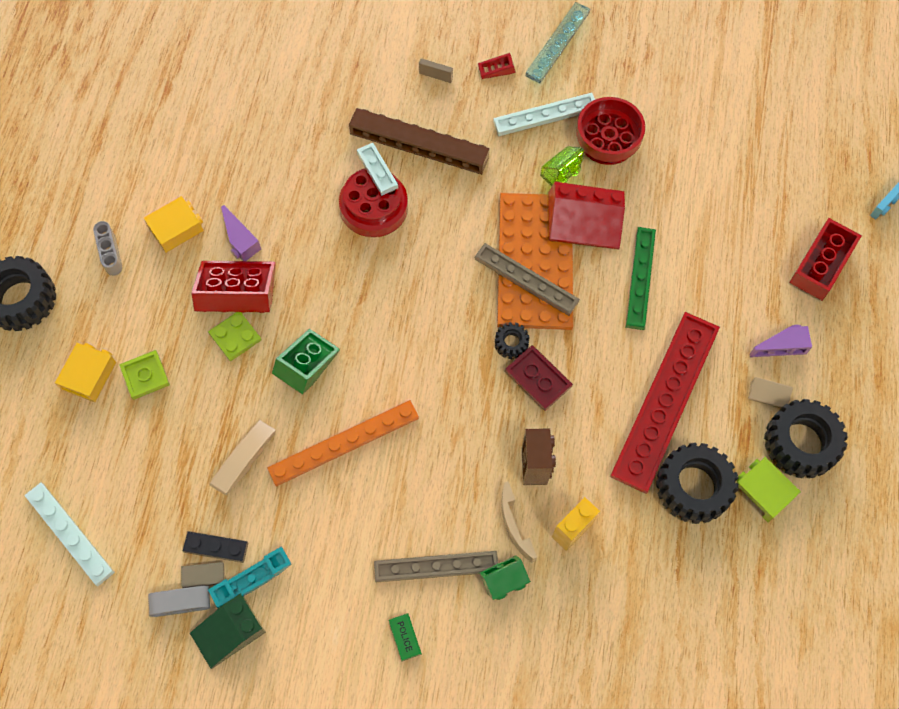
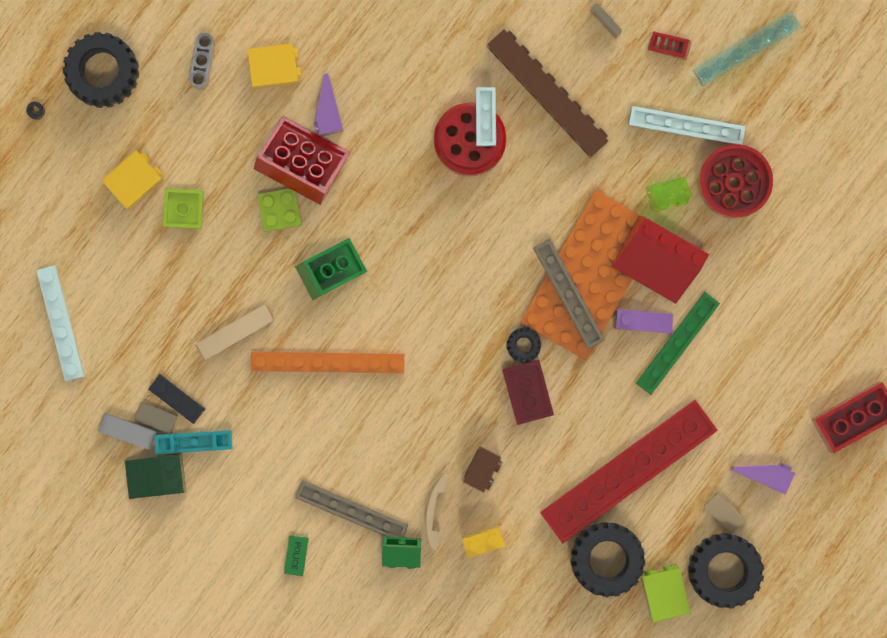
camera: 30 degrees right, 20 degrees up
(599, 273) = (643, 321): none -> medium lavender slope

